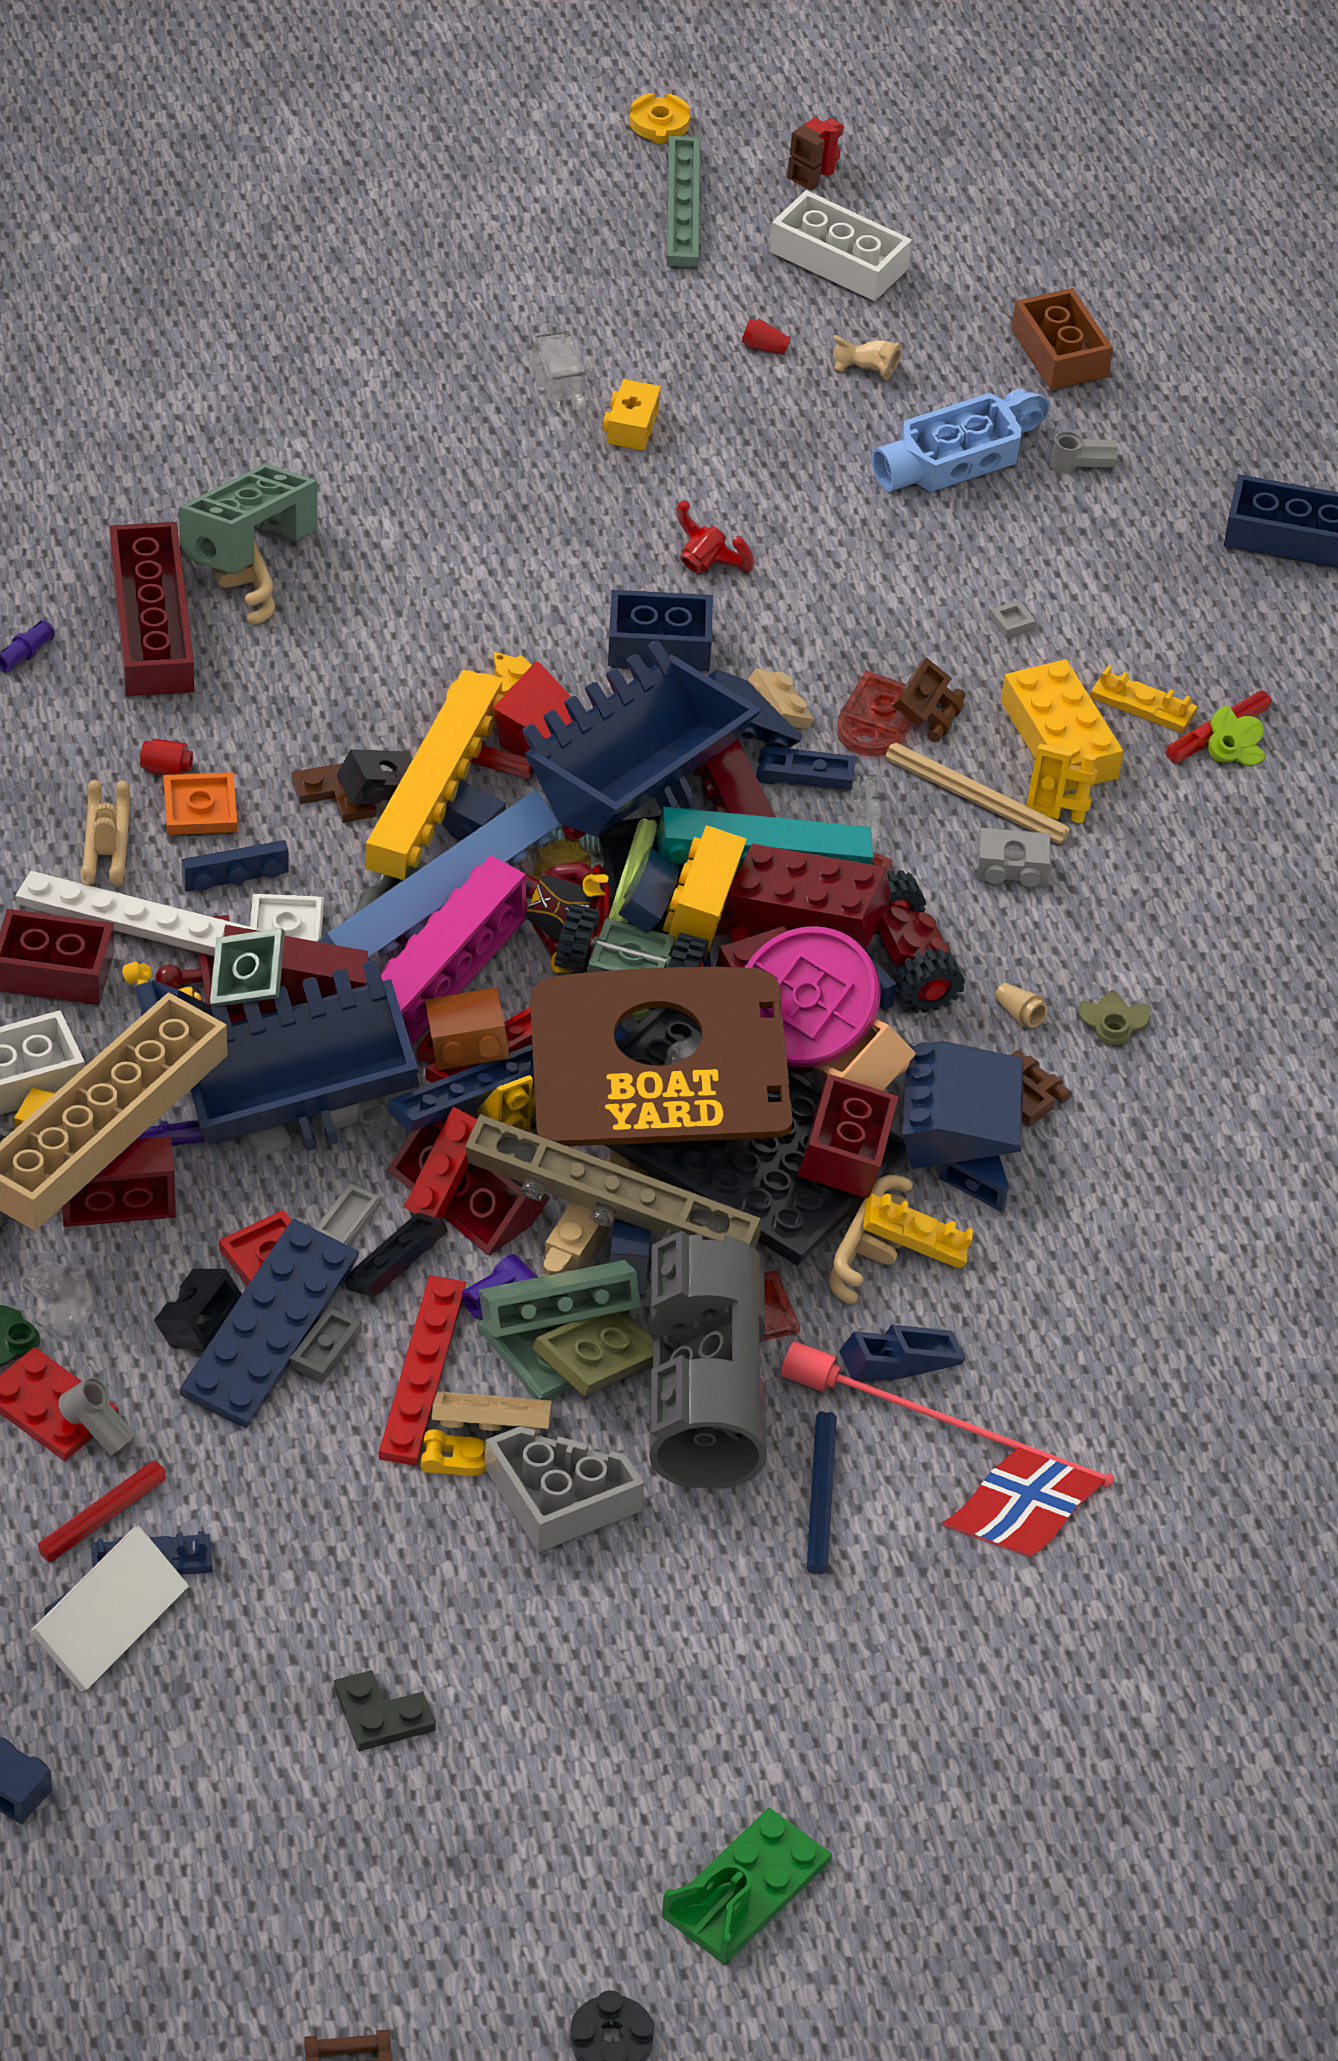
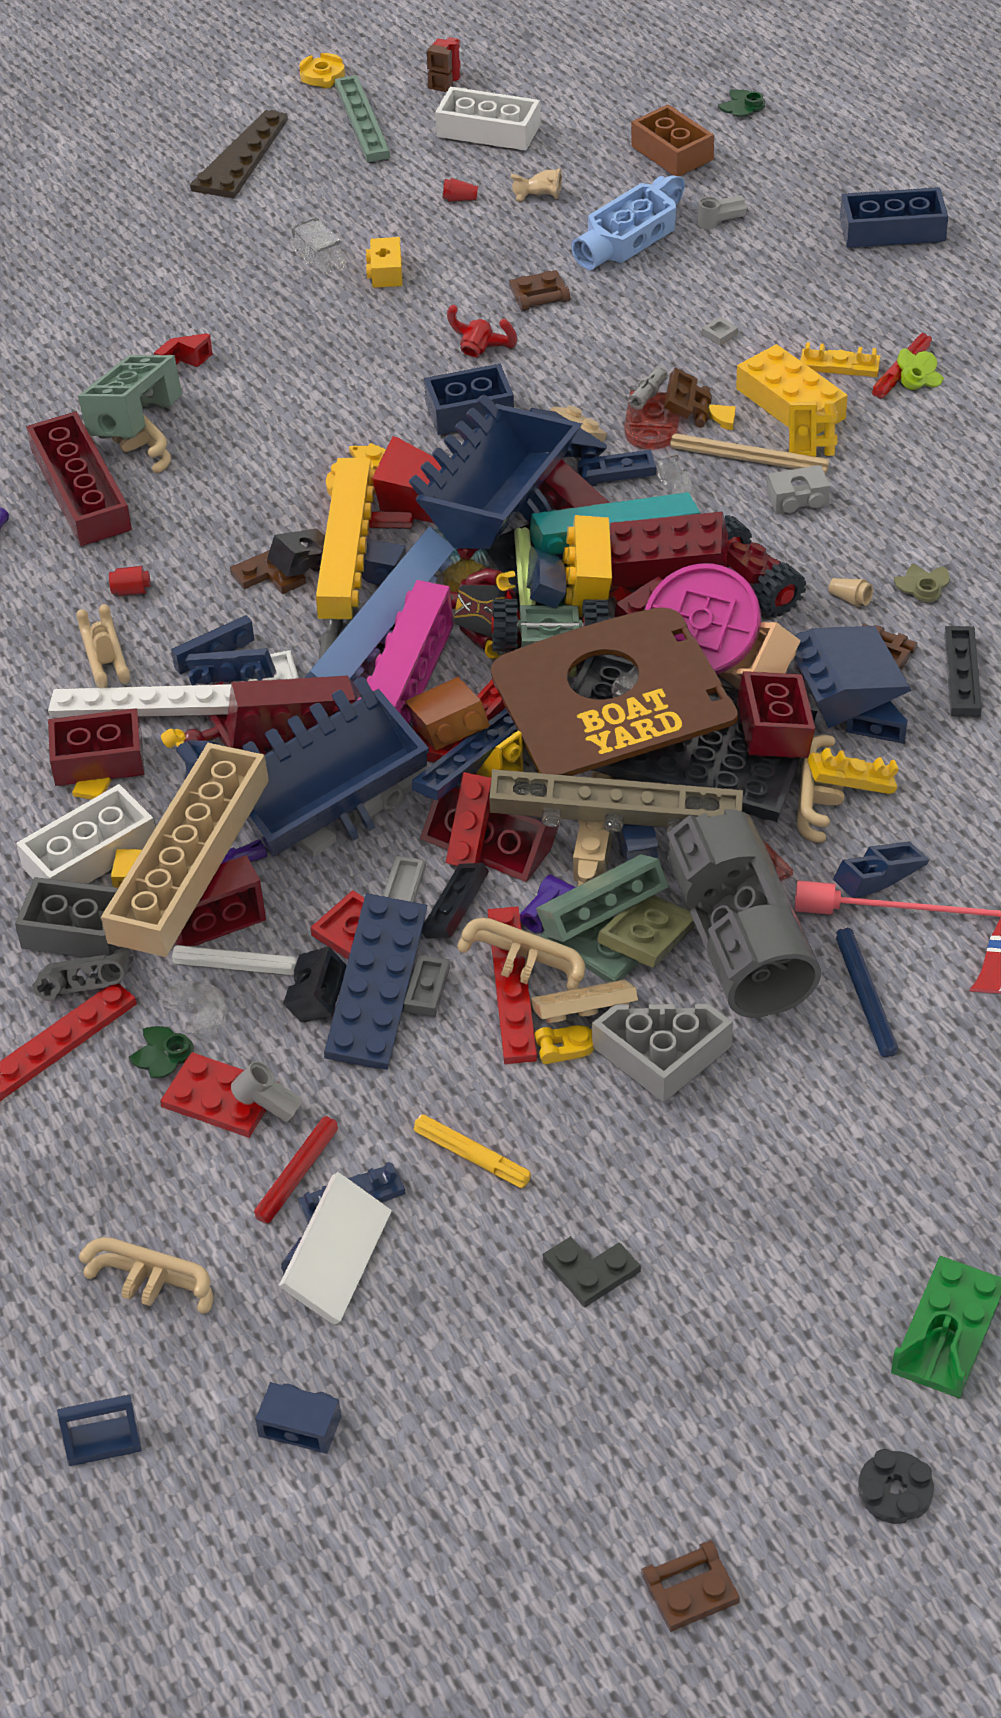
camera: 10 degrees left, 0 degrees up
(33, 1004) = (91, 788): none -> yellow tile
(119, 1253) = (234, 960): none -> white axle
(200, 803) = (168, 607): orange plate -> none
(242, 899) = (230, 666): none -> dark blue plate
(247, 967) = (264, 707): sand green slope -> none
(302, 1546) = (472, 1151): none -> yellow axle
(346, 470) = (188, 349): none -> red slope
(449, 1328) = (526, 945): none -> tan piece
(501, 224) = (237, 162): none -> dark brown wing
(810, 501) = (539, 289): none -> reddish brown plate
(885, 673) = (648, 387): none -> light grey pin
(967, 734) = (723, 415): none -> yellow tile
(1108, 1142) = (962, 671): none -> black plate
(1181, 306) = (743, 102): none -> dark green plate

